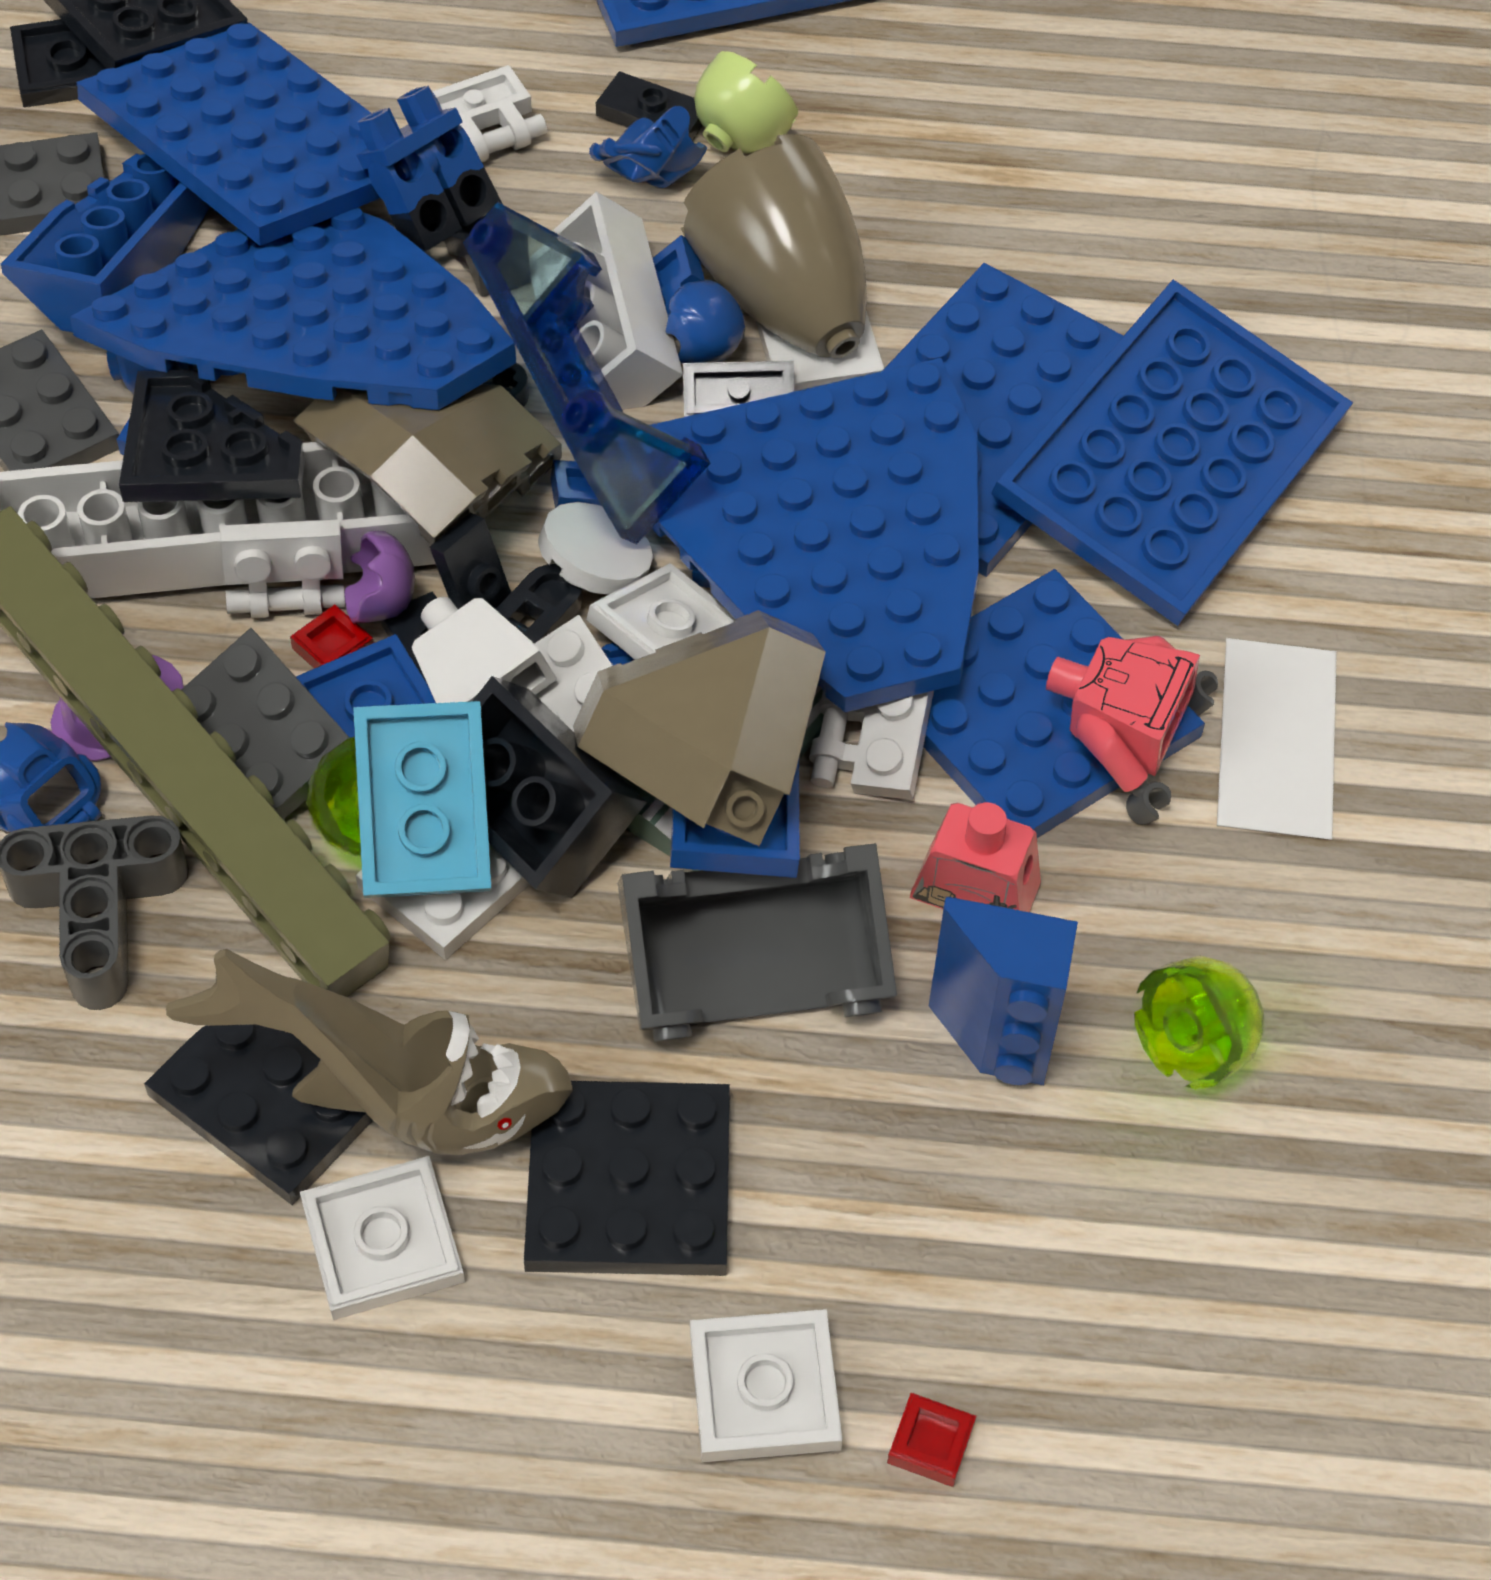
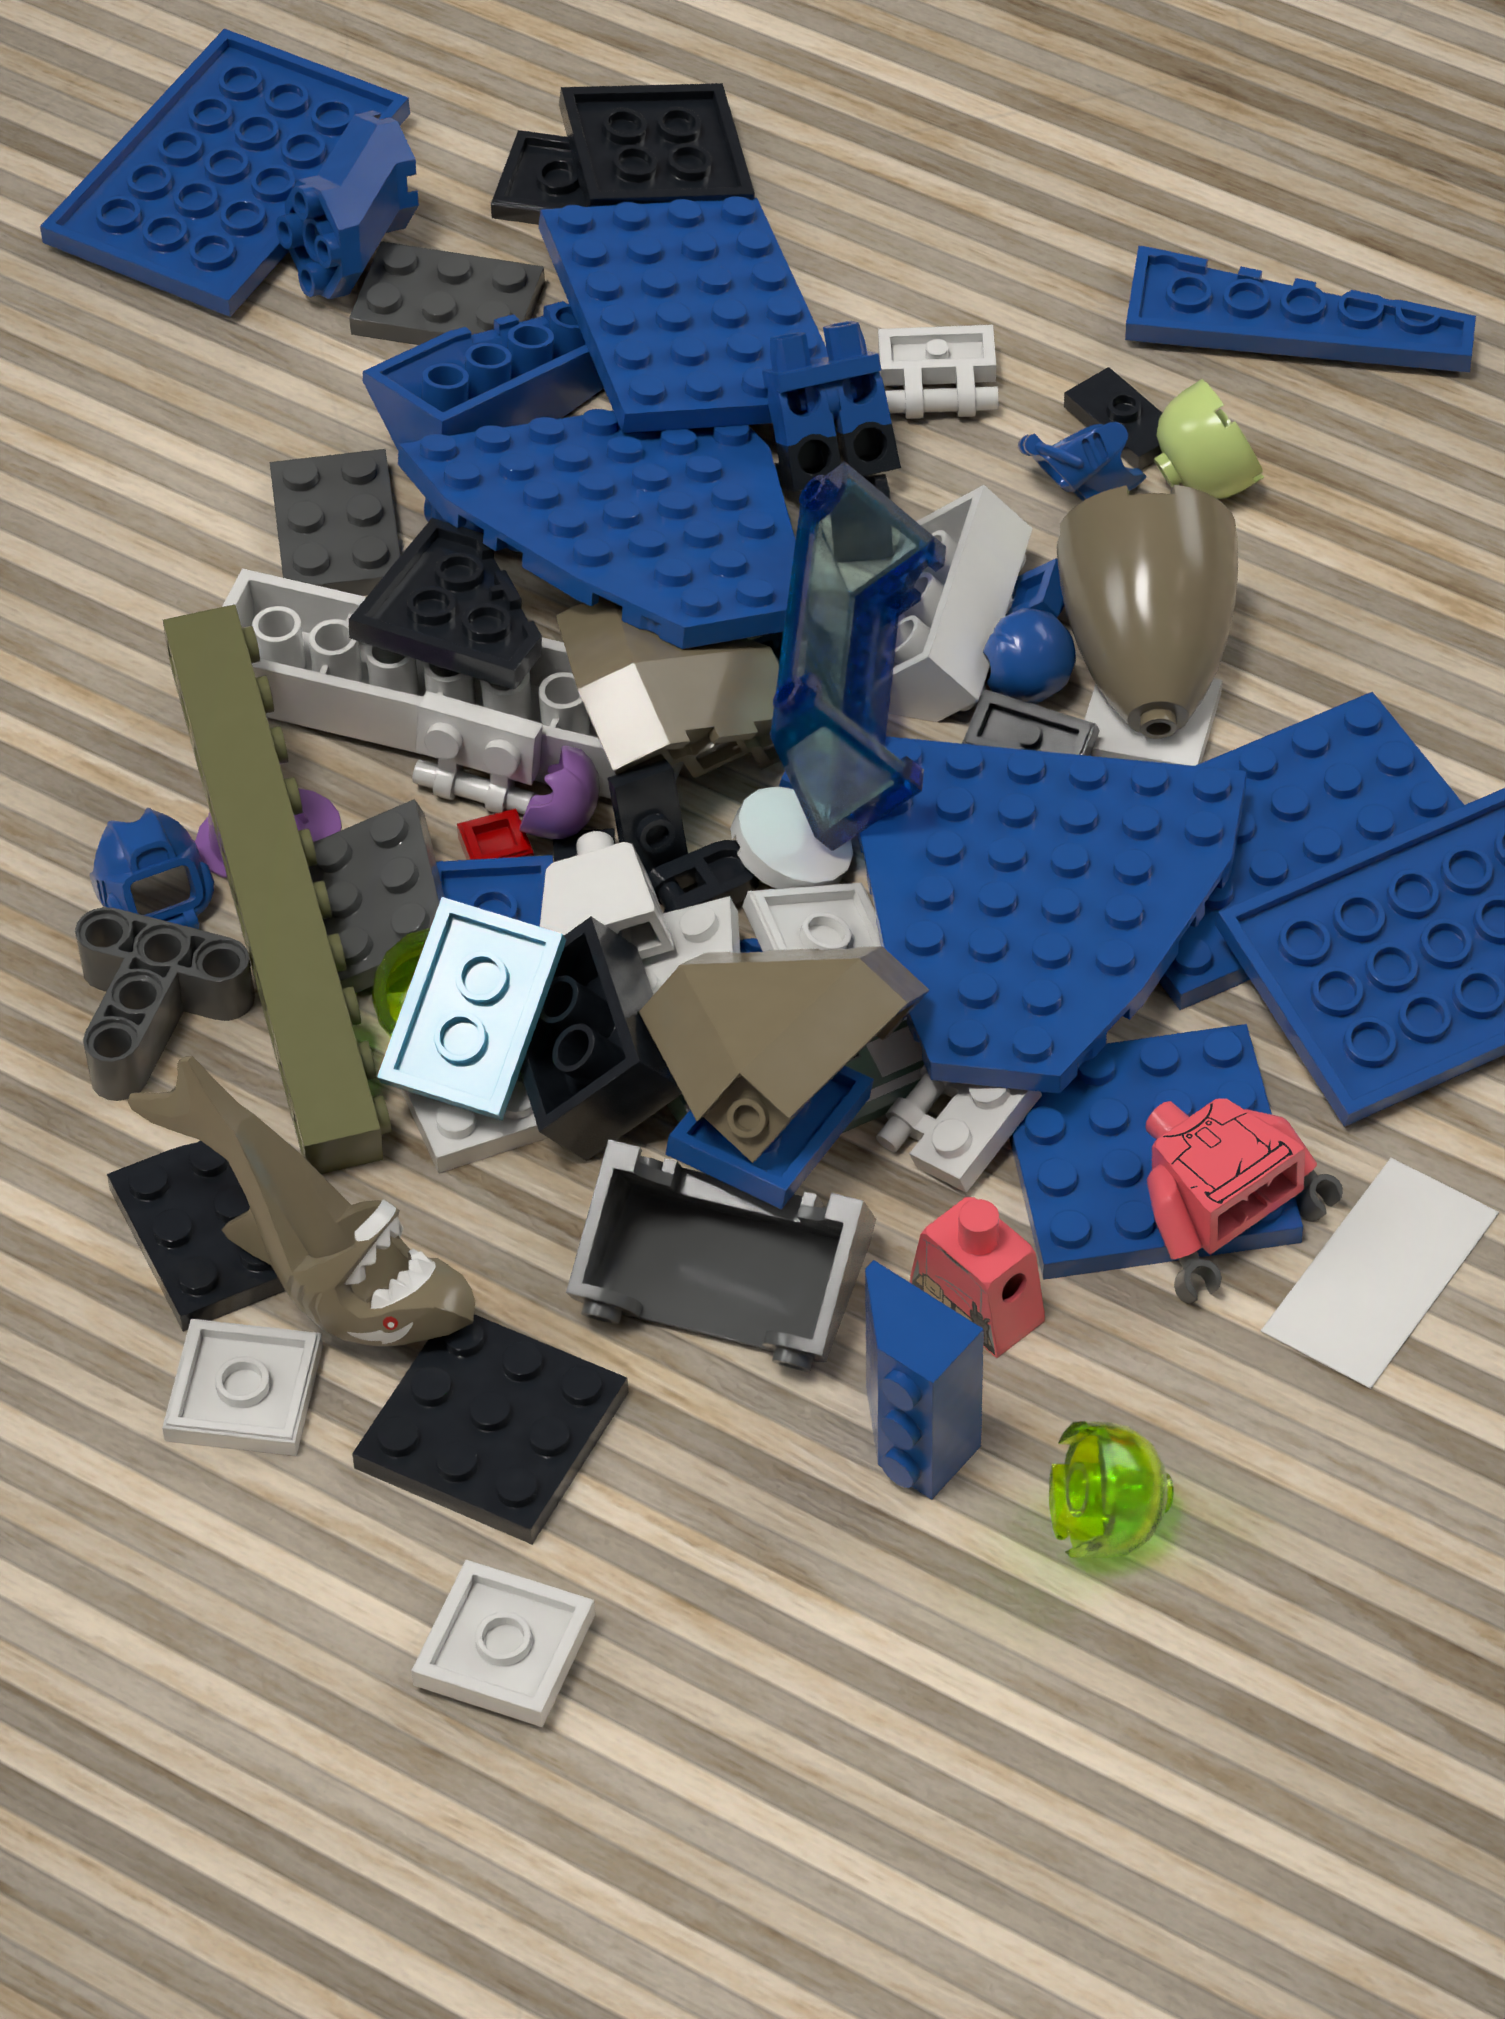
camera: 30 degrees right, 5 degrees down
(931, 1439) = (630, 1752): red tile -> none

